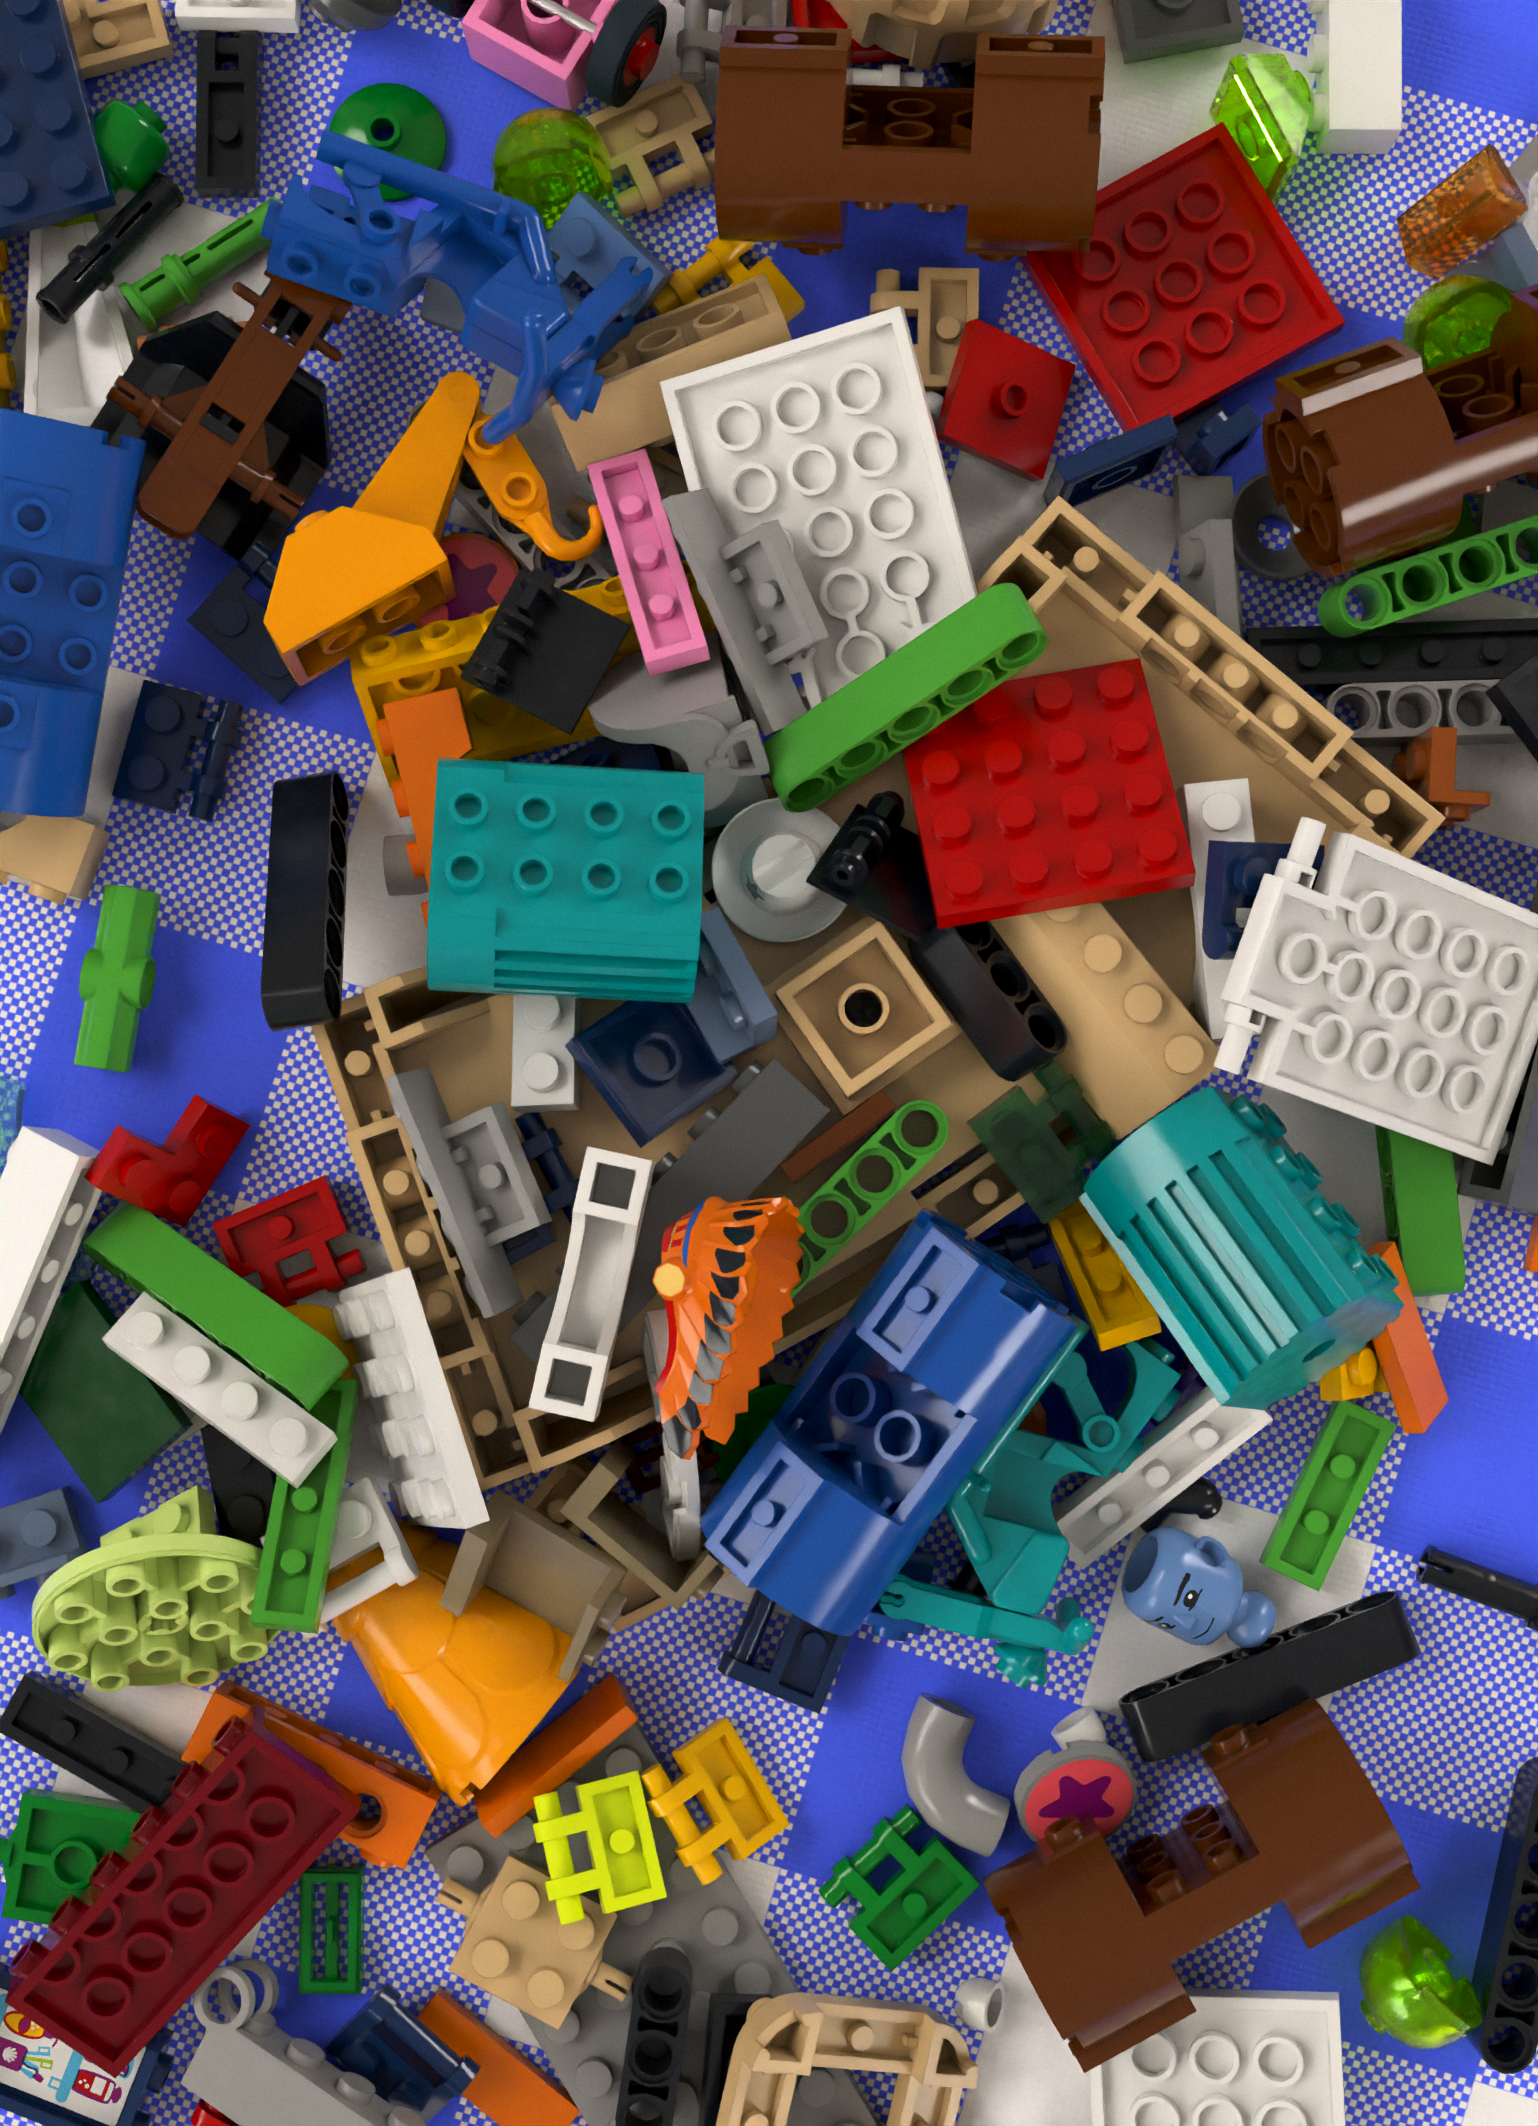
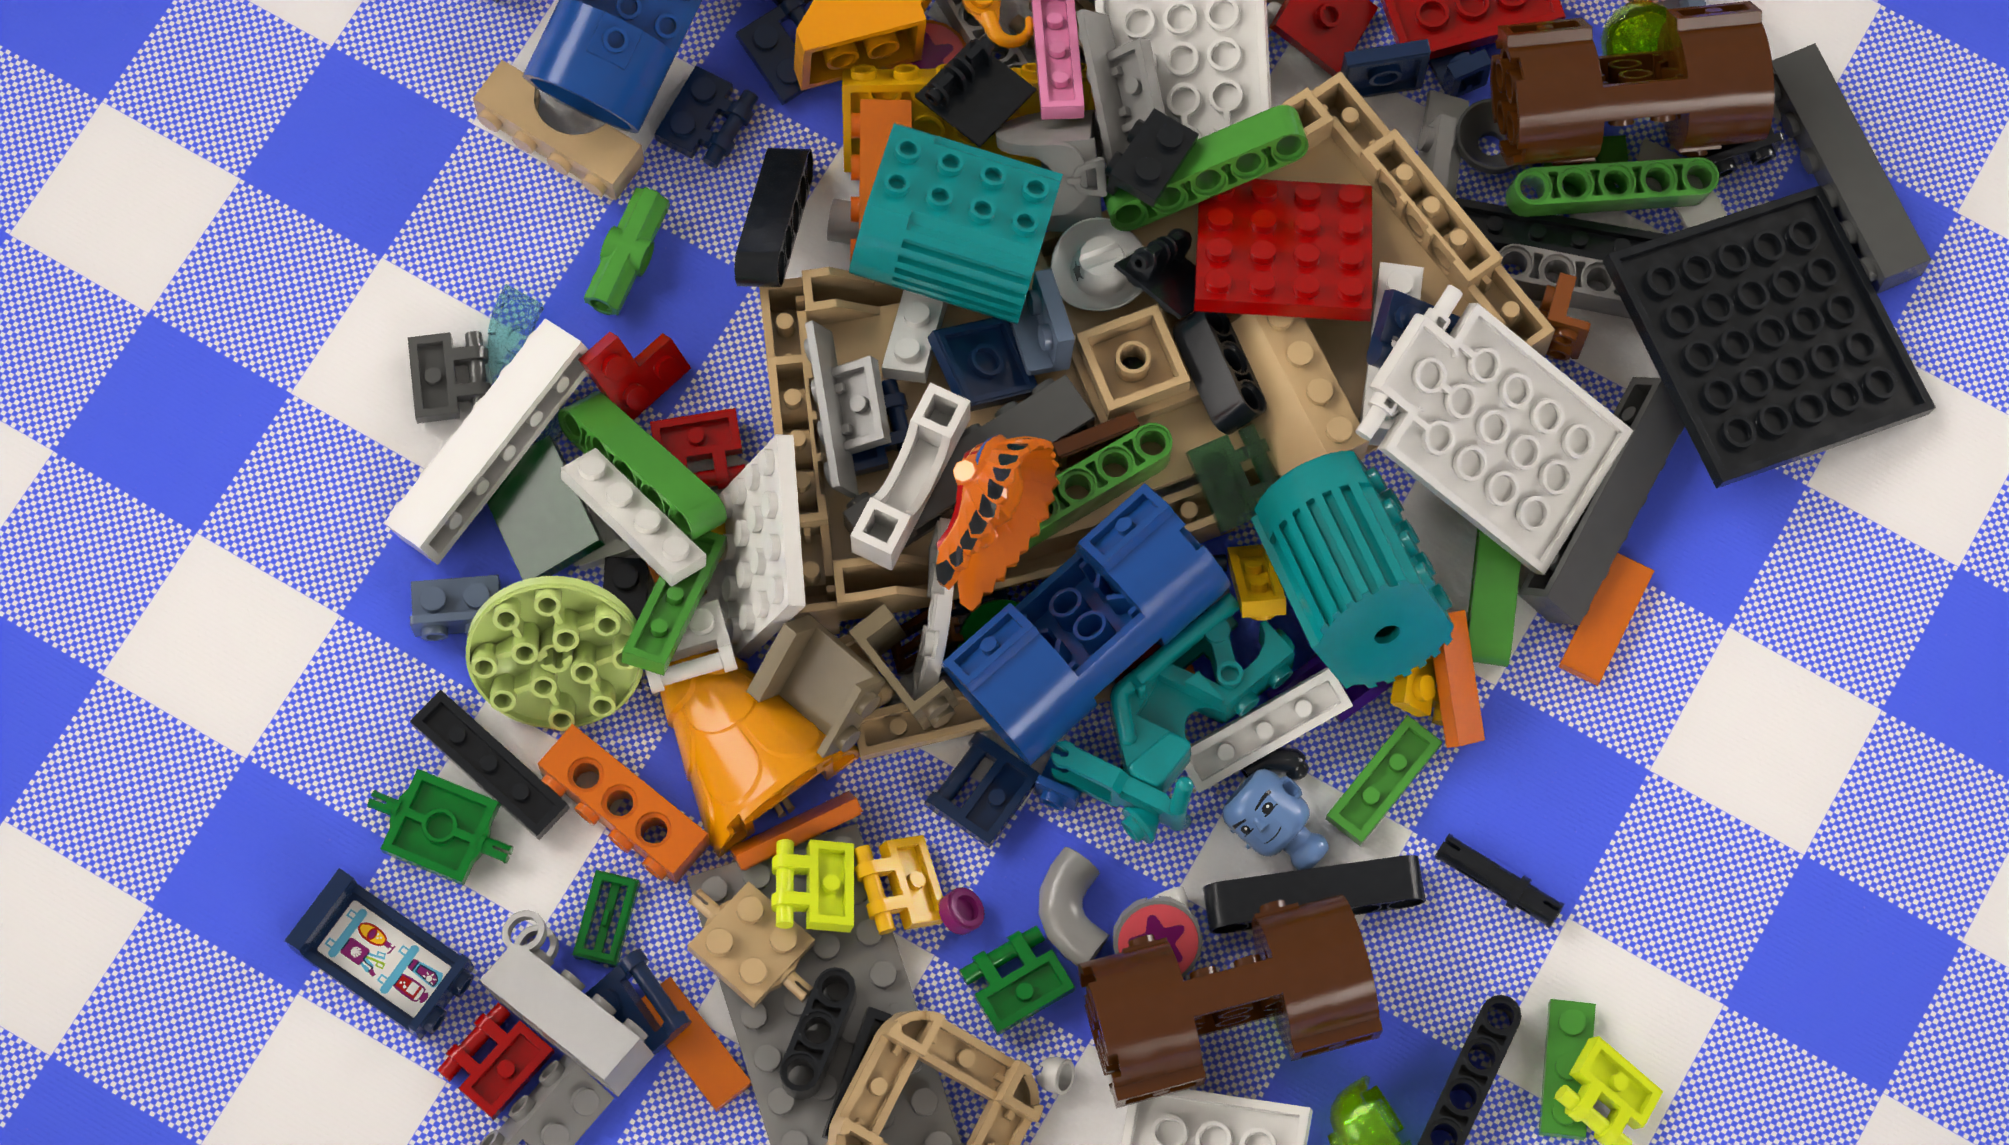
camera: 10 degrees right, 15 degrees down
(179, 1893) = (515, 849): dark red bracket -> none
(803, 1811) = (961, 911): none -> magenta tile
(825, 709) = (1151, 158): none -> black bracket

